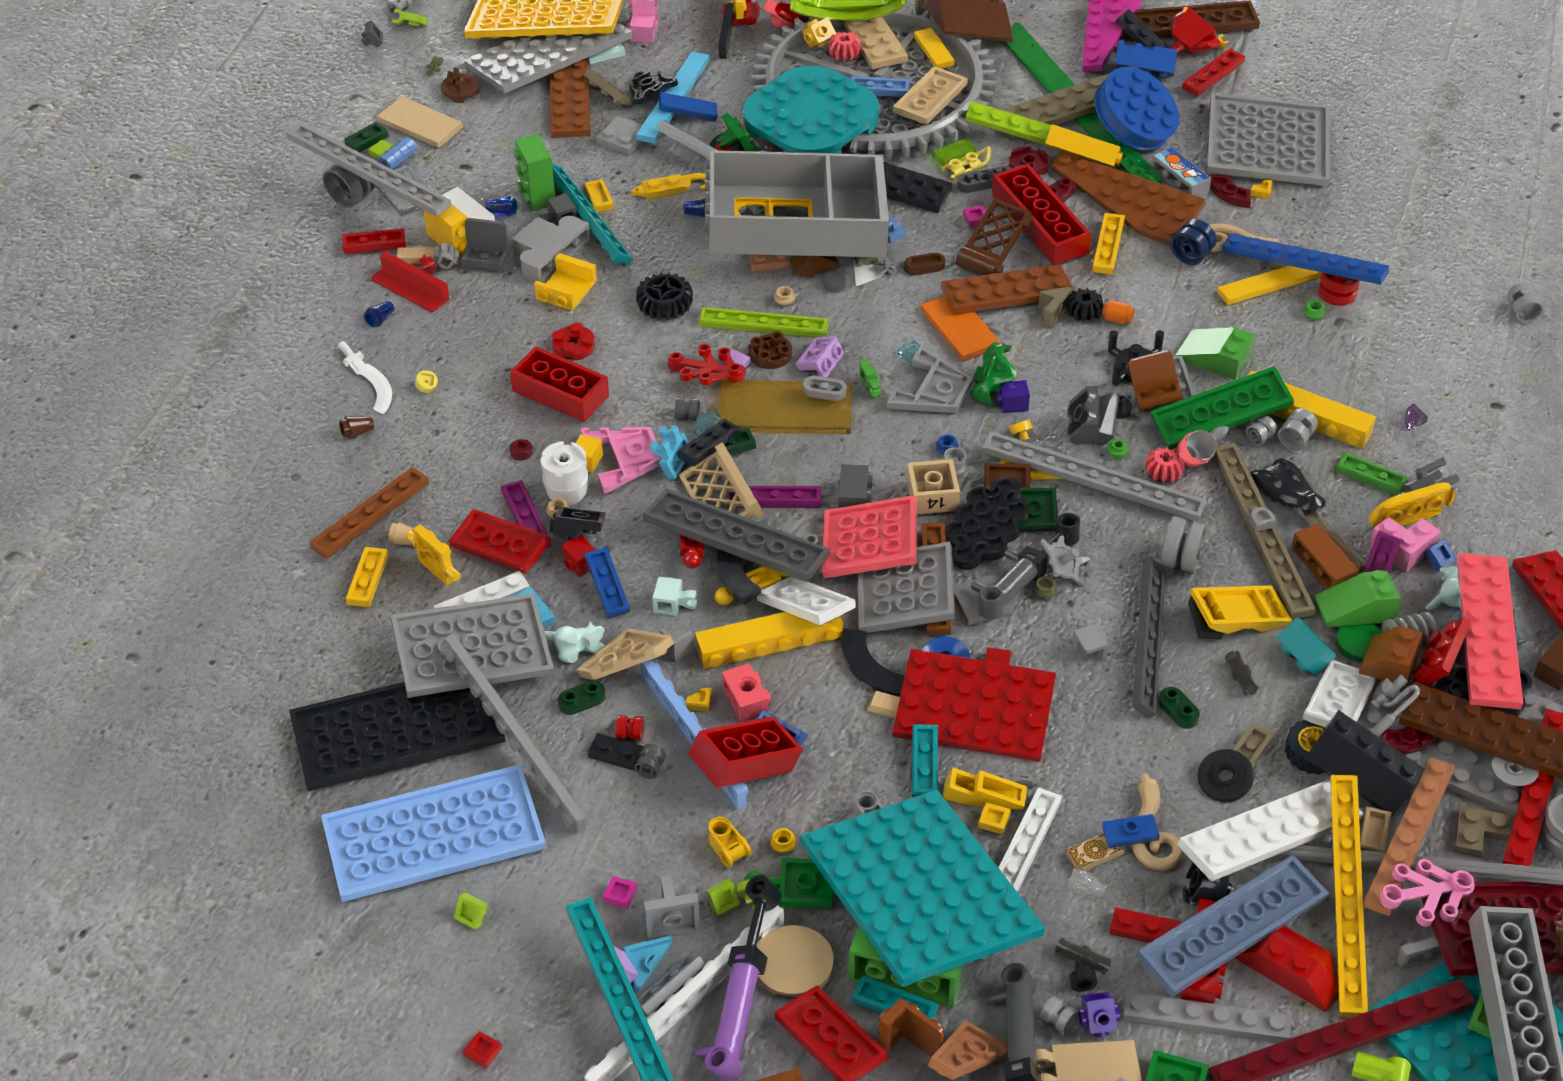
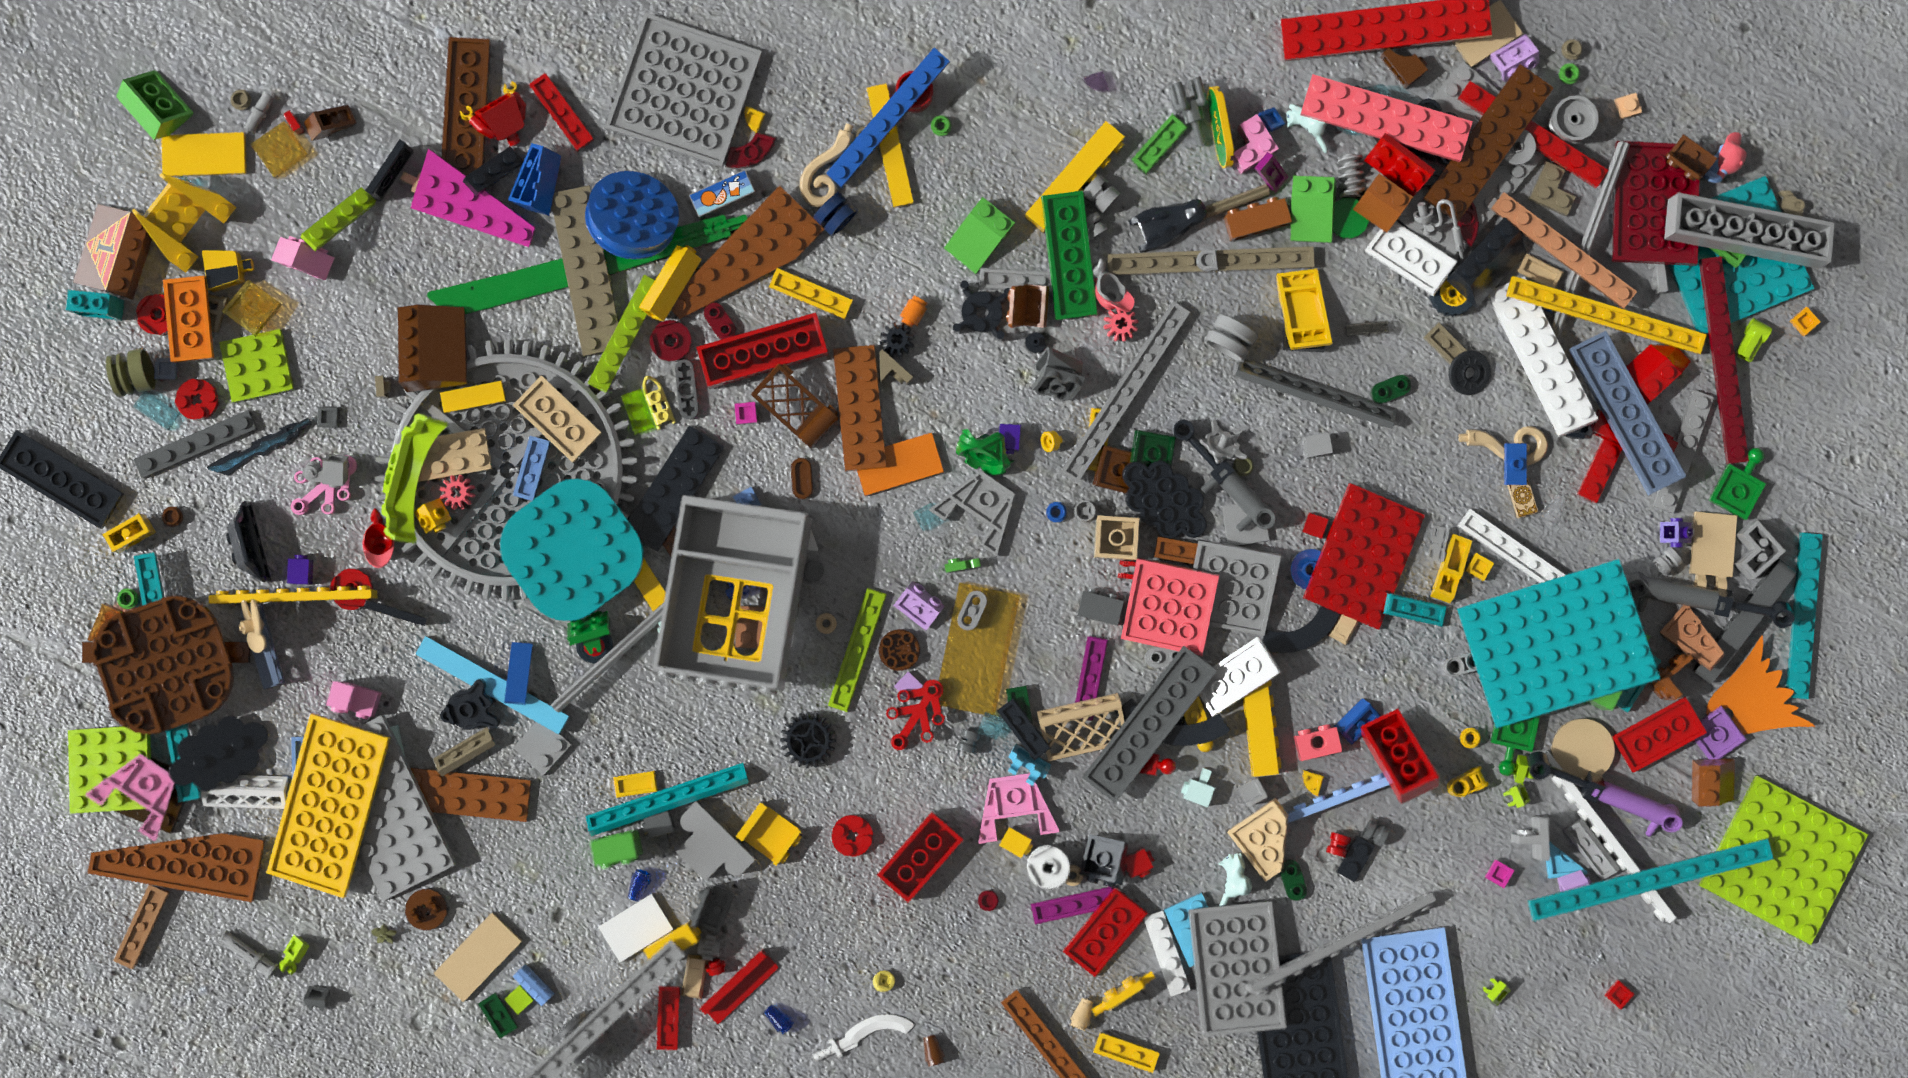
camera: 85 degrees left, 40 degrees up
(607, 582) = (1176, 843): blue tile -> none
(667, 185) = (633, 708): yellow plate -> none
(695, 207) = (678, 689): clear blue cone -> none
(1082, 978) = (1639, 535): black tile -> none
(1083, 955) = (1618, 530): clear smoke pin -> none
(1117, 449) = (1089, 366): bright green plate -> none
(1306, 646) = (1355, 267): teal brick -> none
(1458, 883) = (1629, 256): bright pink plant -> none

